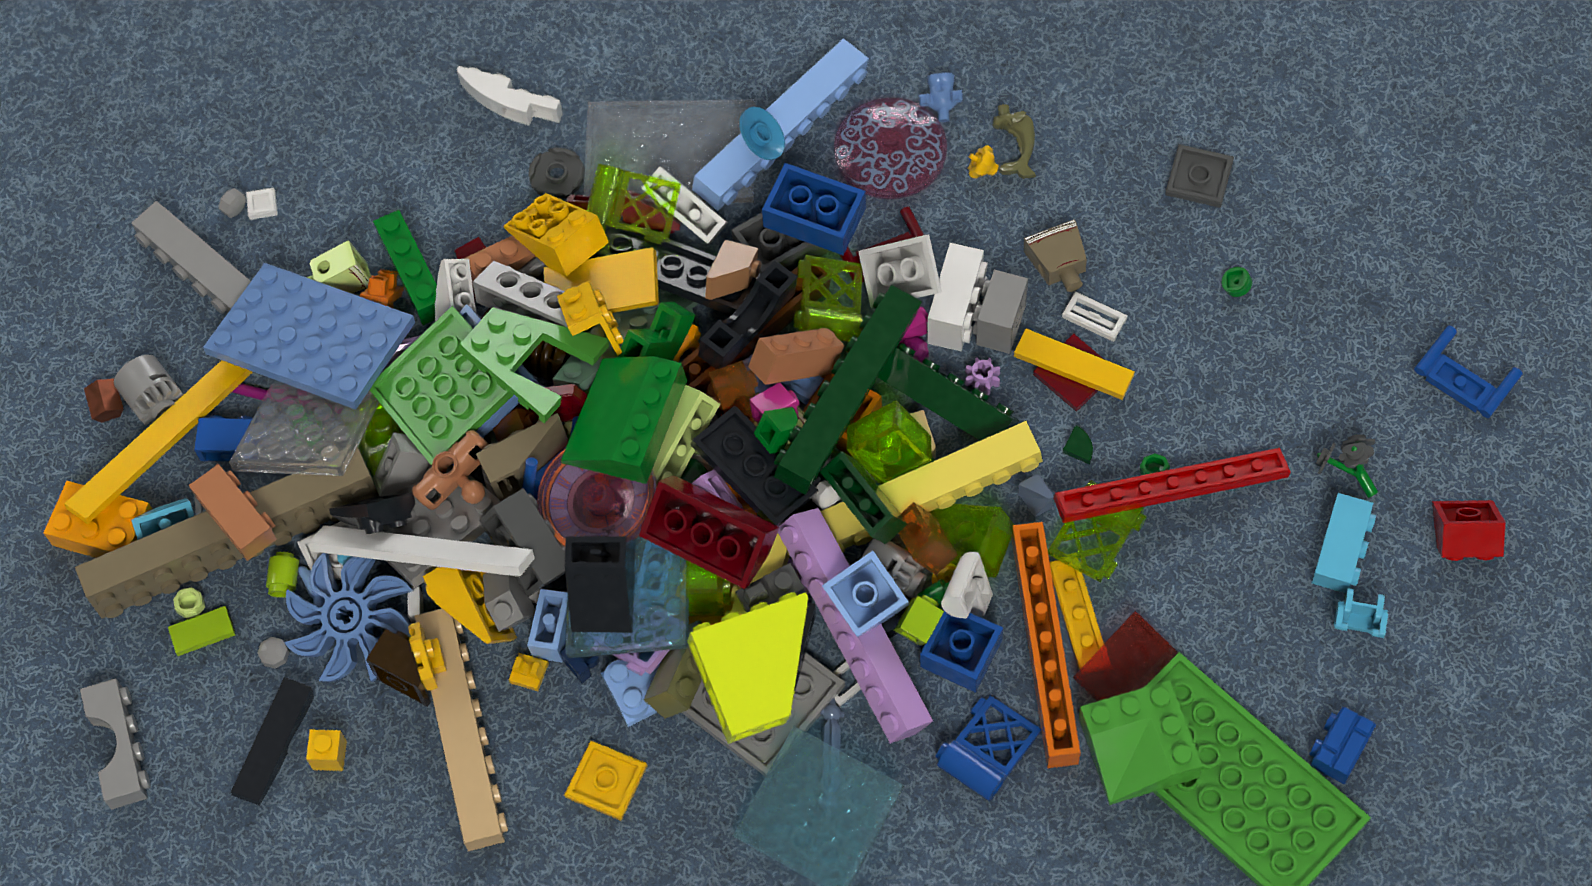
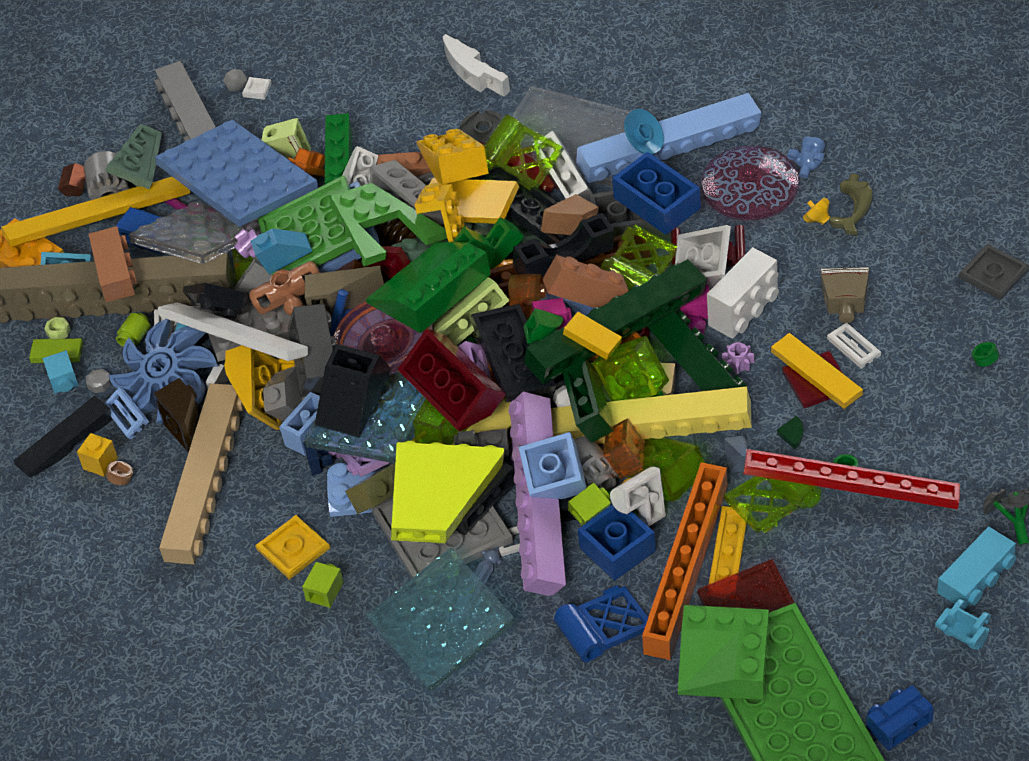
camera: 25 degrees right, 15 degrees down
(173, 348) = (137, 157): none -> sand green wing
(225, 659) = (60, 372): none -> medium azure brick
(351, 696) = (136, 424): none -> light blue tile
(361, 761) = (119, 473): none -> medium nougat tile
(378, 427) = (244, 244): none -> lavender gear
(426, 425) = (279, 248): none -> dark azure slope
(427, 655) = (201, 407): yellow plate -> none
(528, 672) = (275, 452): yellow tile -> none
(666, 815) = (323, 584): none -> lime brick
(840, 422) = (592, 335): none -> yellow tile
(1000, 311) = (774, 312): light grey brick -> none

